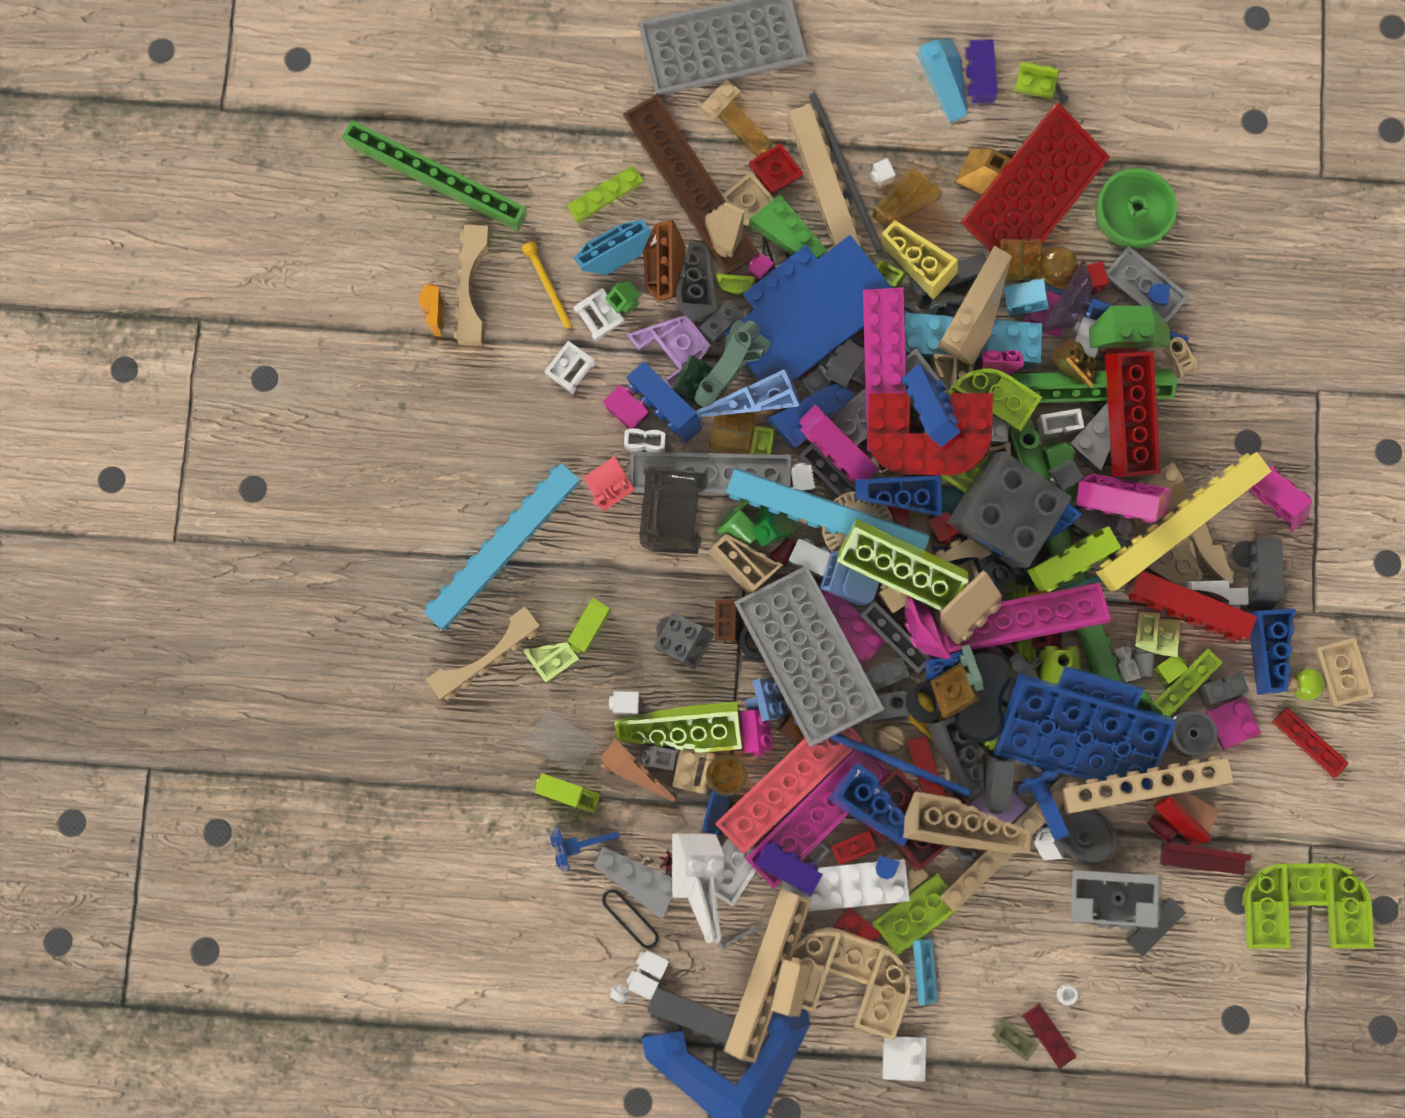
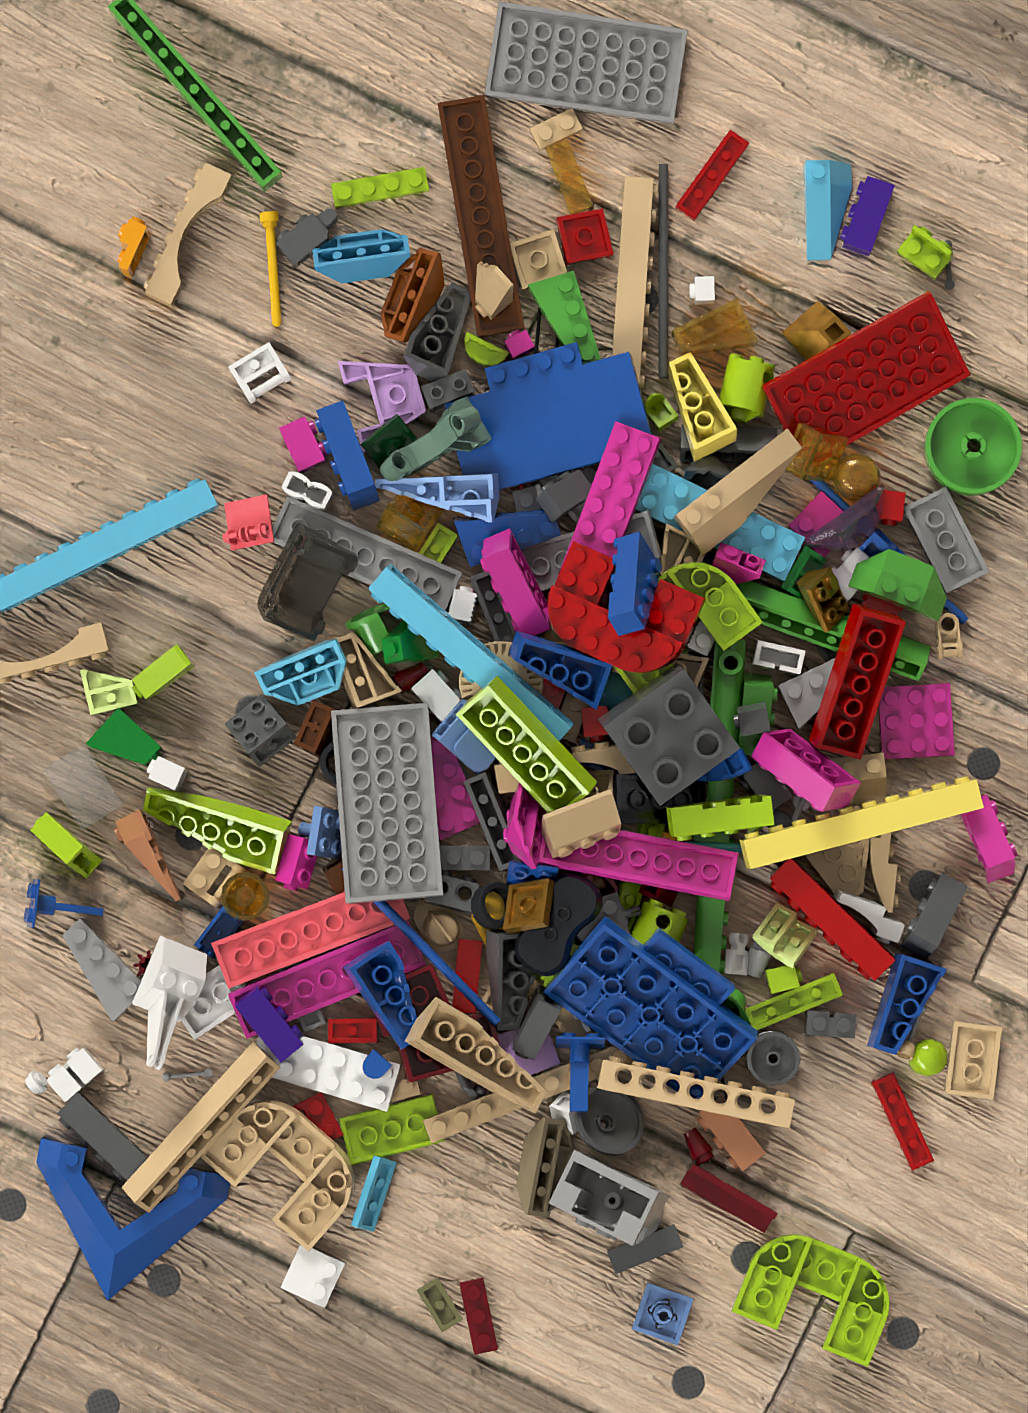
camera: 20 degrees right, 5 degrees up
(565, 247) = (306, 236): none -> dark grey hinge
(580, 691) = (125, 739): none -> green slope
(603, 311) = (324, 324): white plate -> none
(623, 297) = (350, 317): bright green brick -> none
(636, 912) = (70, 1010): black piece -> none
(658, 758) = (180, 847): light grey bracket -> none
(701, 581) = (304, 673): none -> medium azure wedge
(791, 987) = (219, 1149): tan brick -> none
(852, 88) = (712, 175): none -> red tile
(946, 229) = (742, 387): none -> lime cylinder
(967, 660) = (552, 898): sand green plate -> none
(1026, 297) = (802, 499): medium azure brick -> none
(1049, 342) = (806, 561): none -> green hinge
(1050, 893) = (542, 1165): none -> dark tan wedge
(1067, 994) = (517, 1281): white plate -> none
(1159, 294) = (954, 556): blue tile -> none
(1182, 821) = (719, 1147): red tile -> none
(1186, 431) = (916, 721): none -> dark pink plate
(1201, 972) = (662, 1313): none -> medium blue plate
(1234, 722) = (827, 1065): dark pink plate -> none

